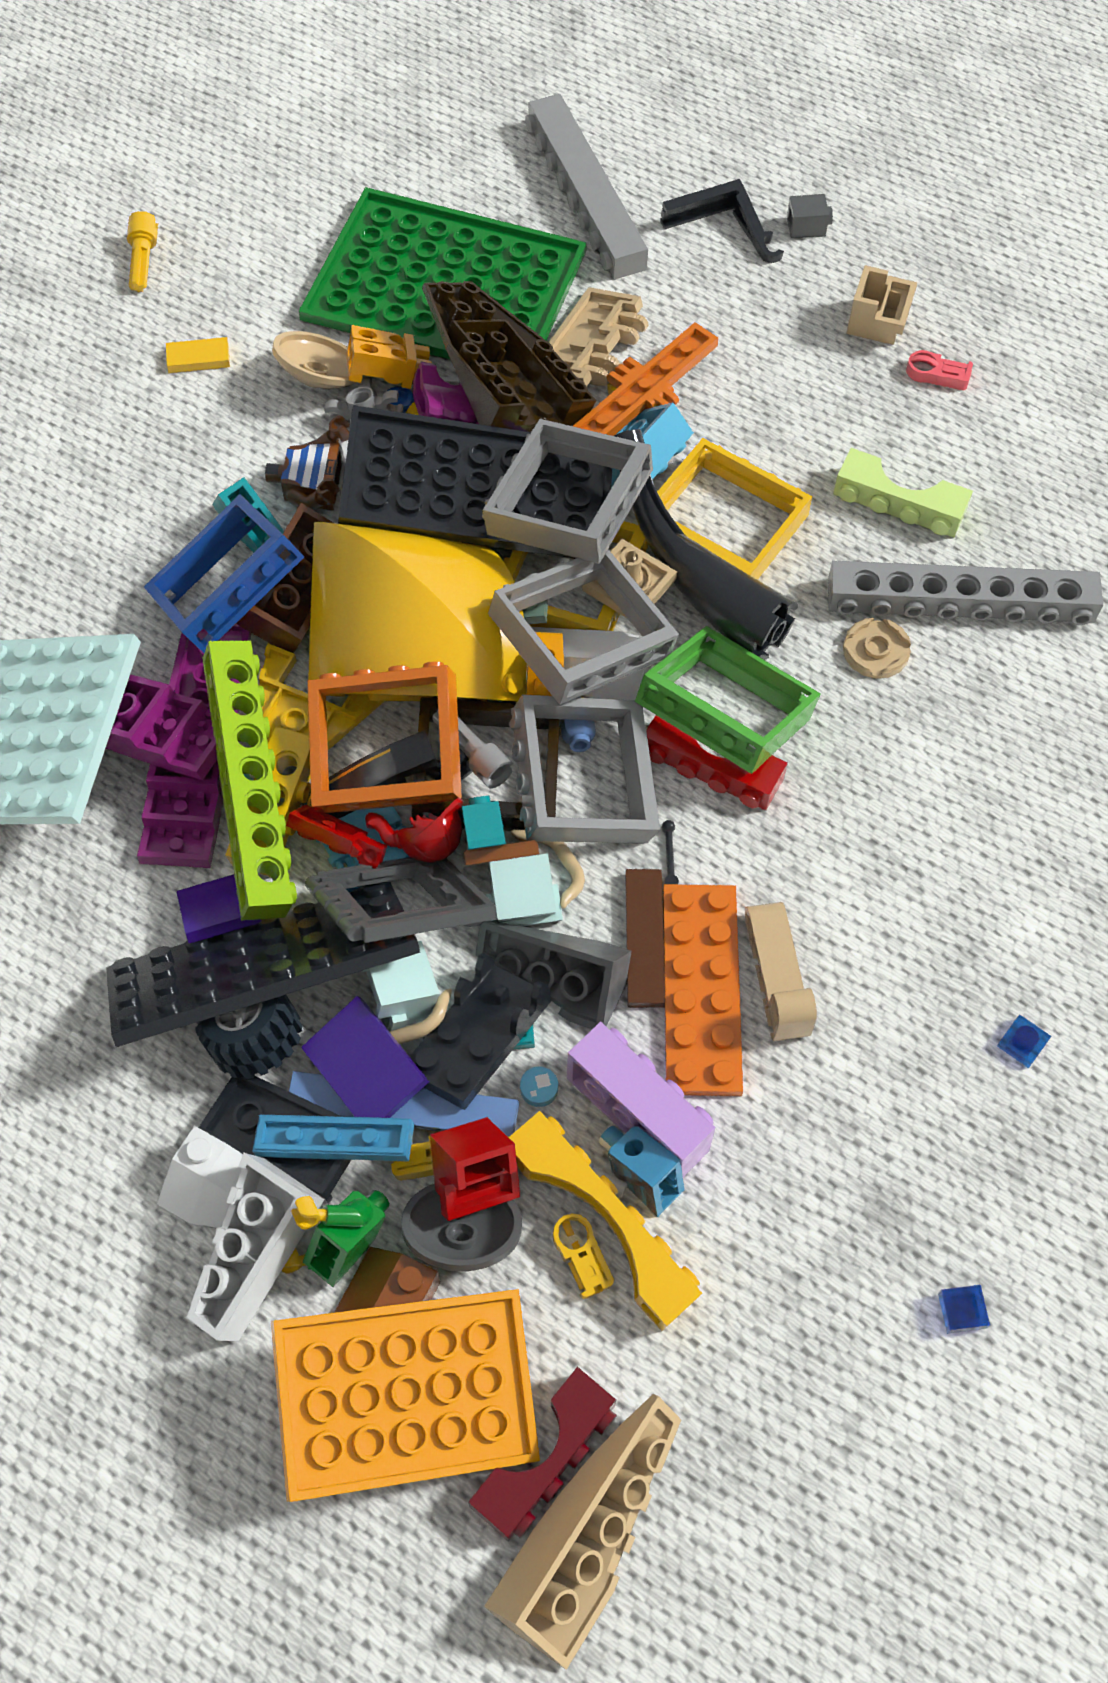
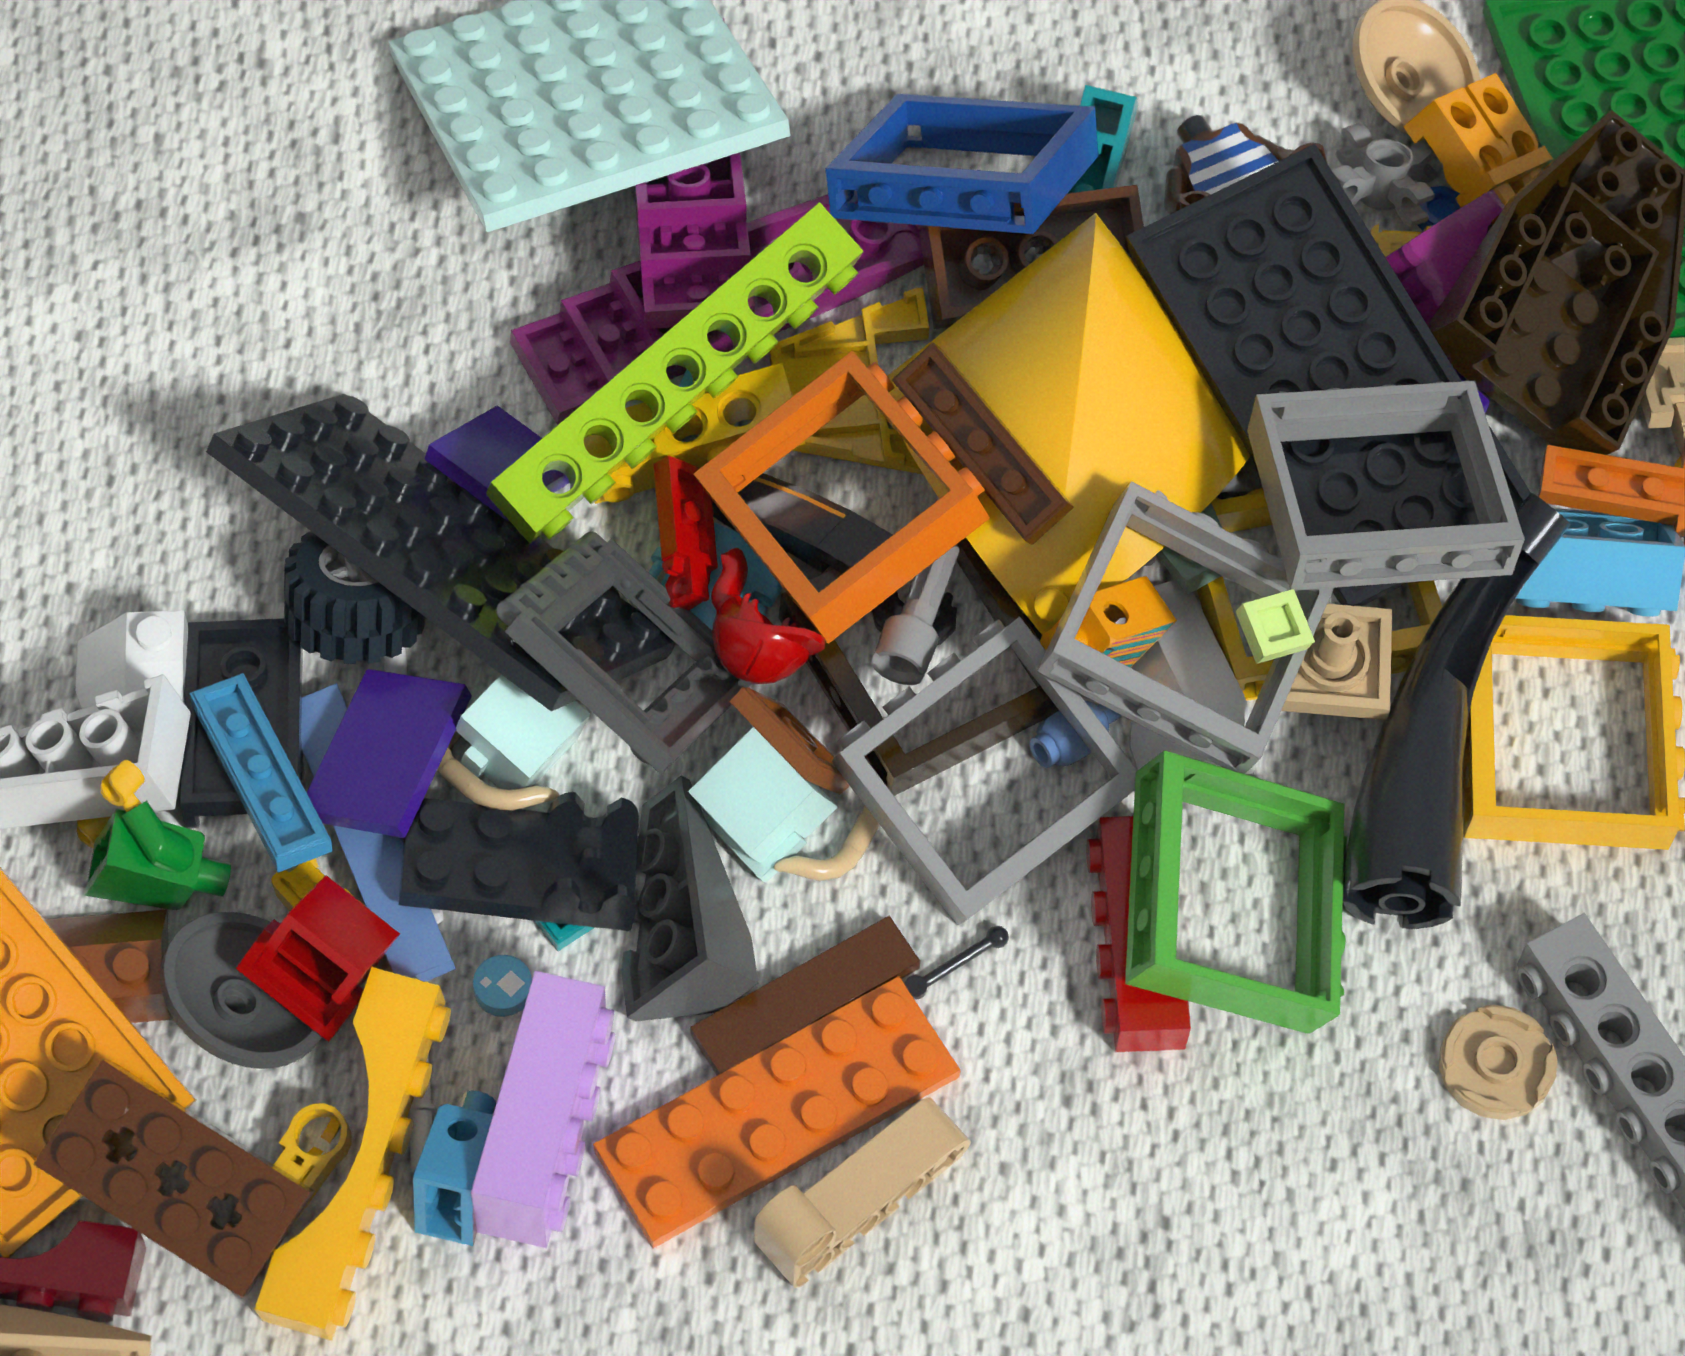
camera: 55 degrees right, 0 degrees up
(413, 649) = (982, 443): none -> reddish brown tile
(483, 823) = (803, 689): teal slope -> none
(539, 1314) = (134, 1188): none -> reddish brown brick
(616, 580) = (1275, 626): none -> yellowish green plate

